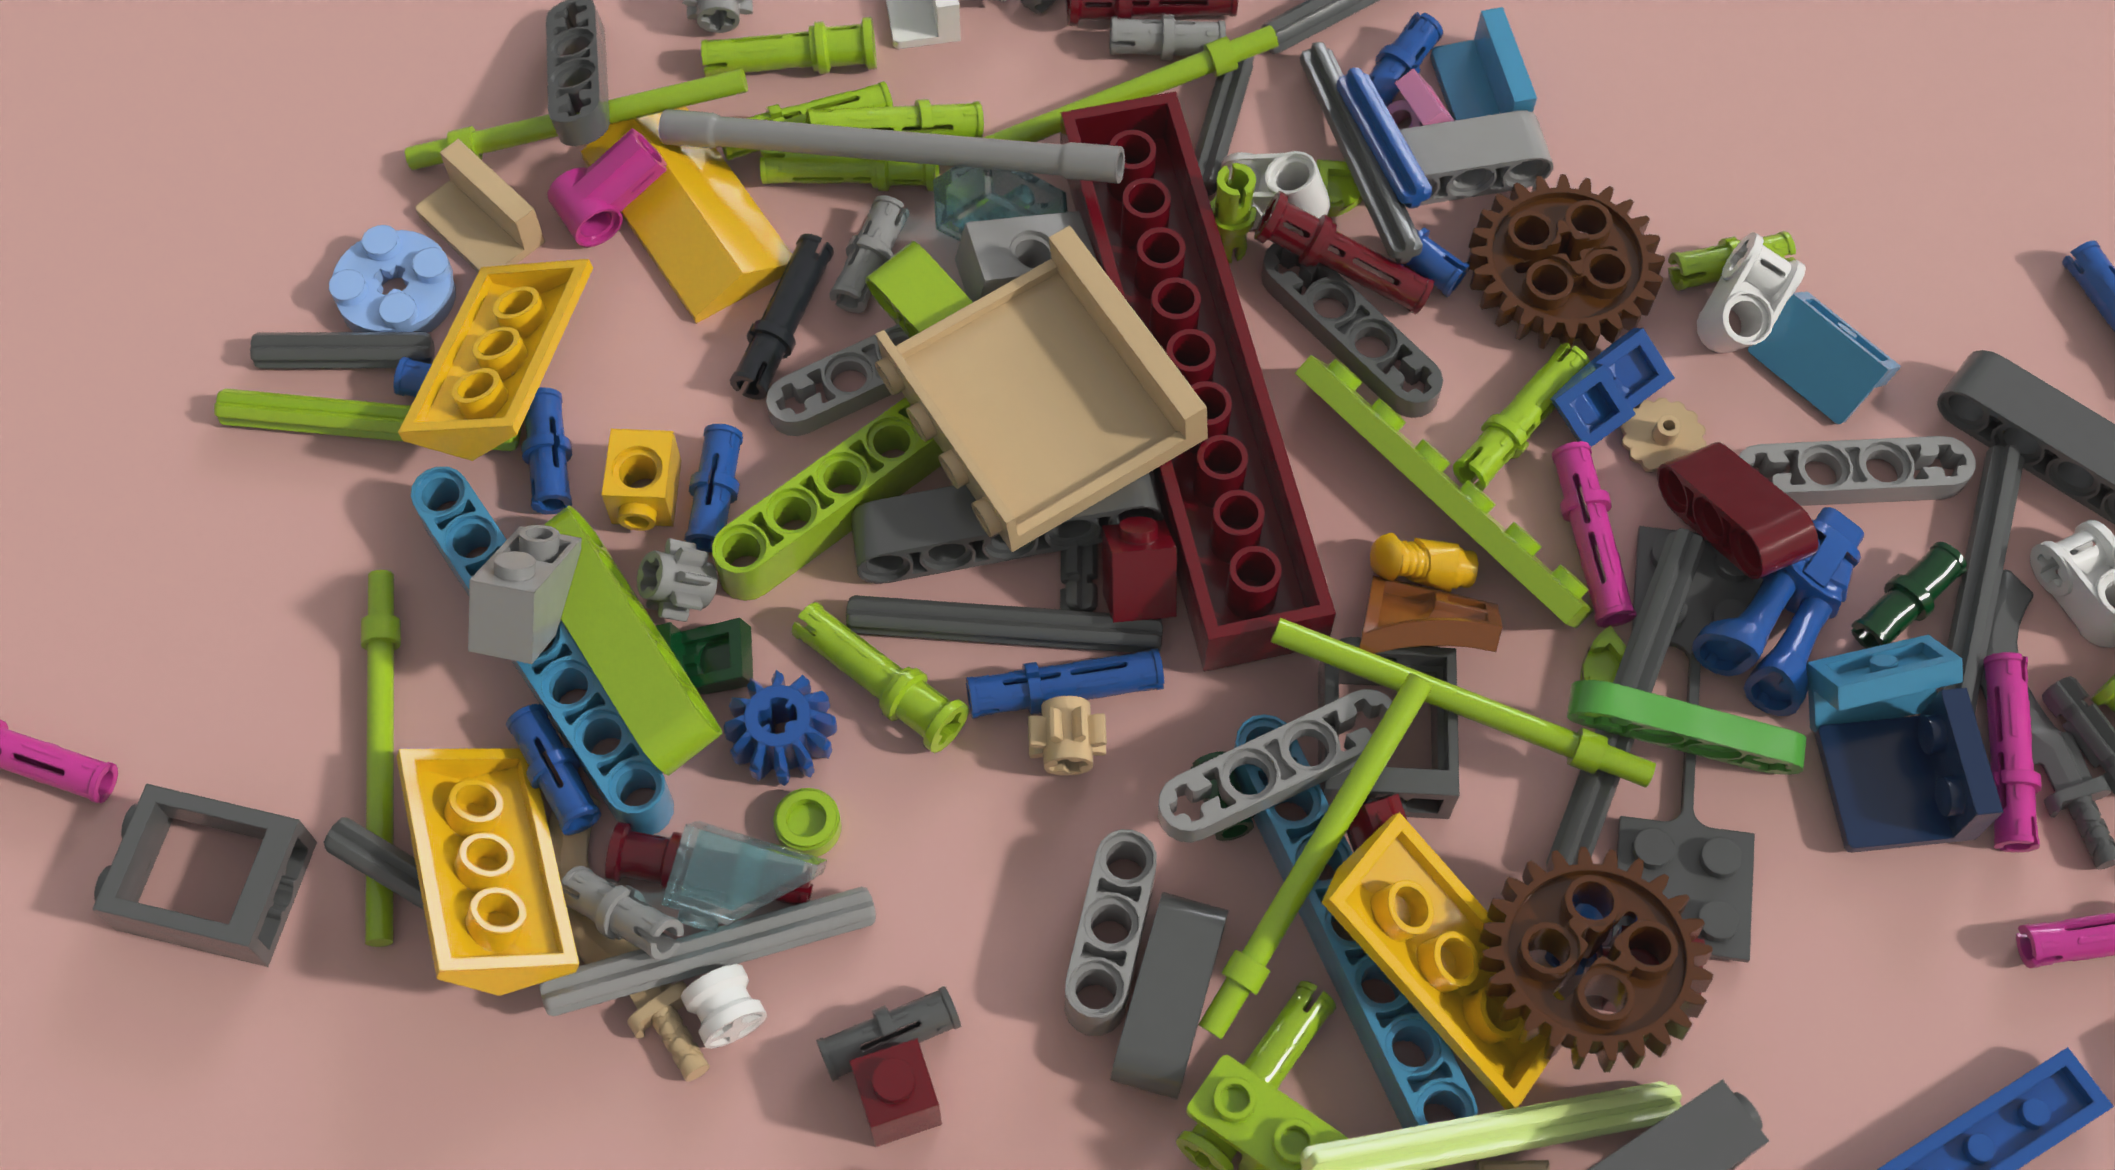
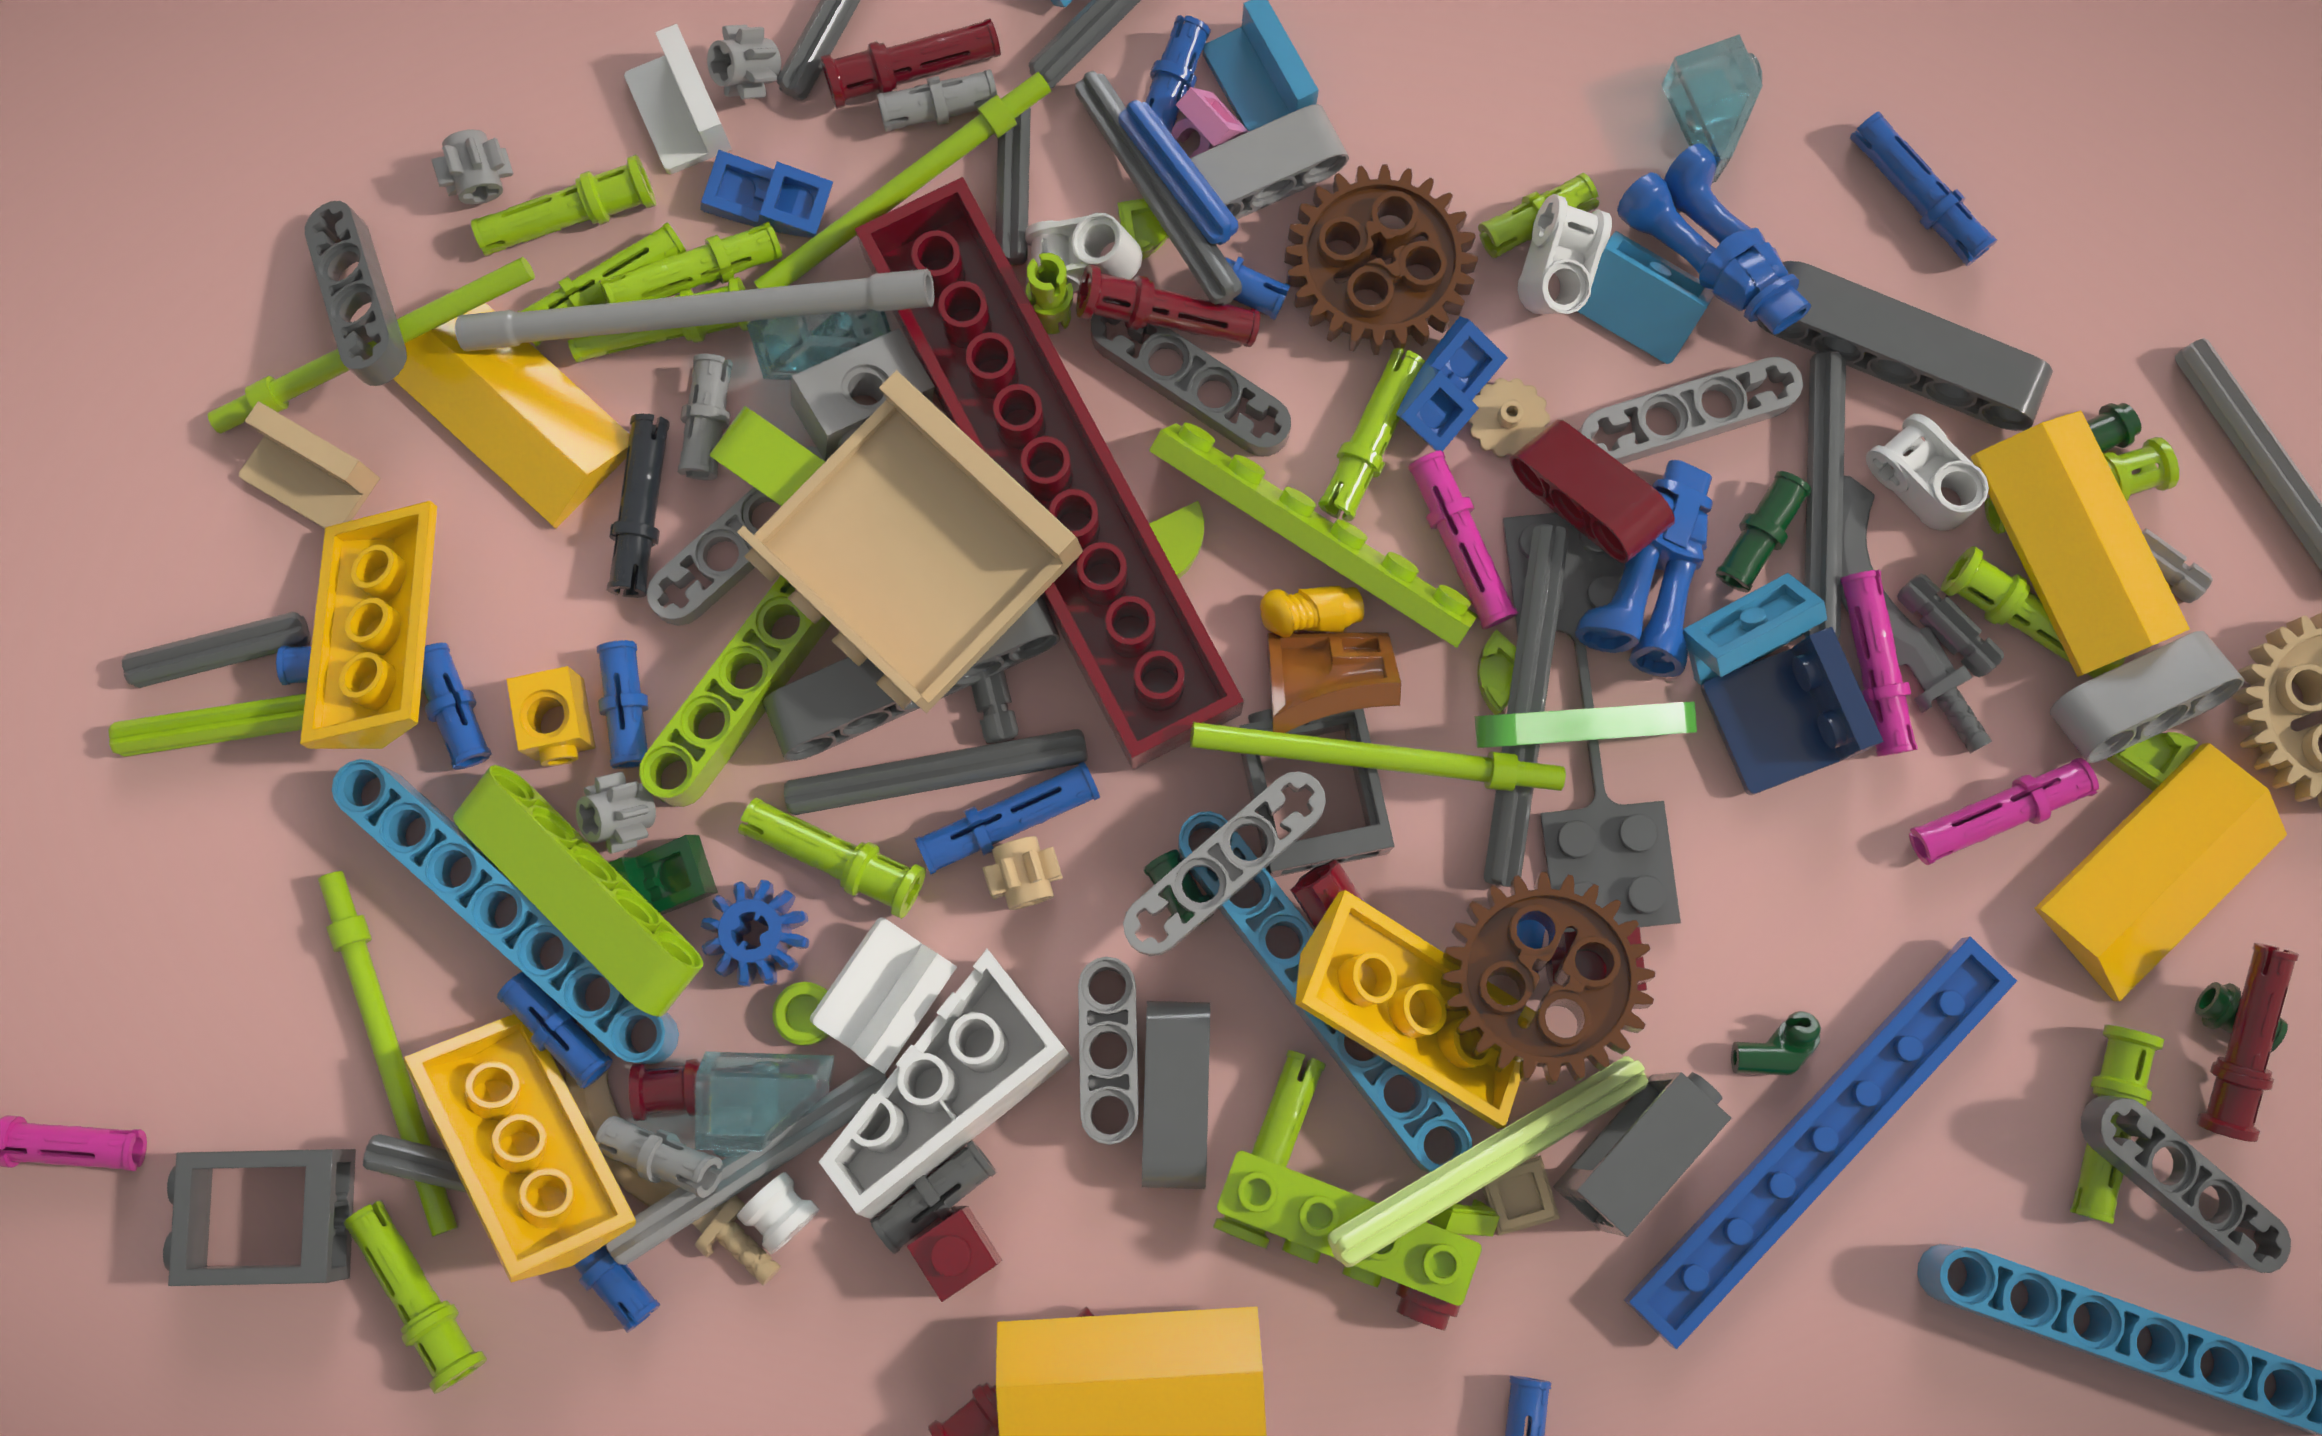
camera: 15 degrees left, 15 degrees up
(333, 1021) = (426, 1320): none -> lime pin
(391, 255) = (224, 538): light blue plate -> none
(522, 593) = (473, 881): light grey slope -> none
(534, 1037) = (617, 1288): none -> blue pin
(594, 196) = (416, 423): dark pink piece -> none
(891, 816) = (882, 994): none -> white panel
(934, 923) = (947, 1089): none -> white wedge
(967, 75) = (758, 194): none -> blue slope
(1139, 570) = (1049, 694): dark red brick -> none
(1247, 969) = (1240, 1059): lime bar -> none
(1310, 464) = (1181, 536): none -> lime tile
(1839, 1121) = (1783, 1052): none -> dark green arm
(1928, 195) = (1714, 95): none -> clear light blue slope
(1930, 337) = (1743, 266): none -> blue piece

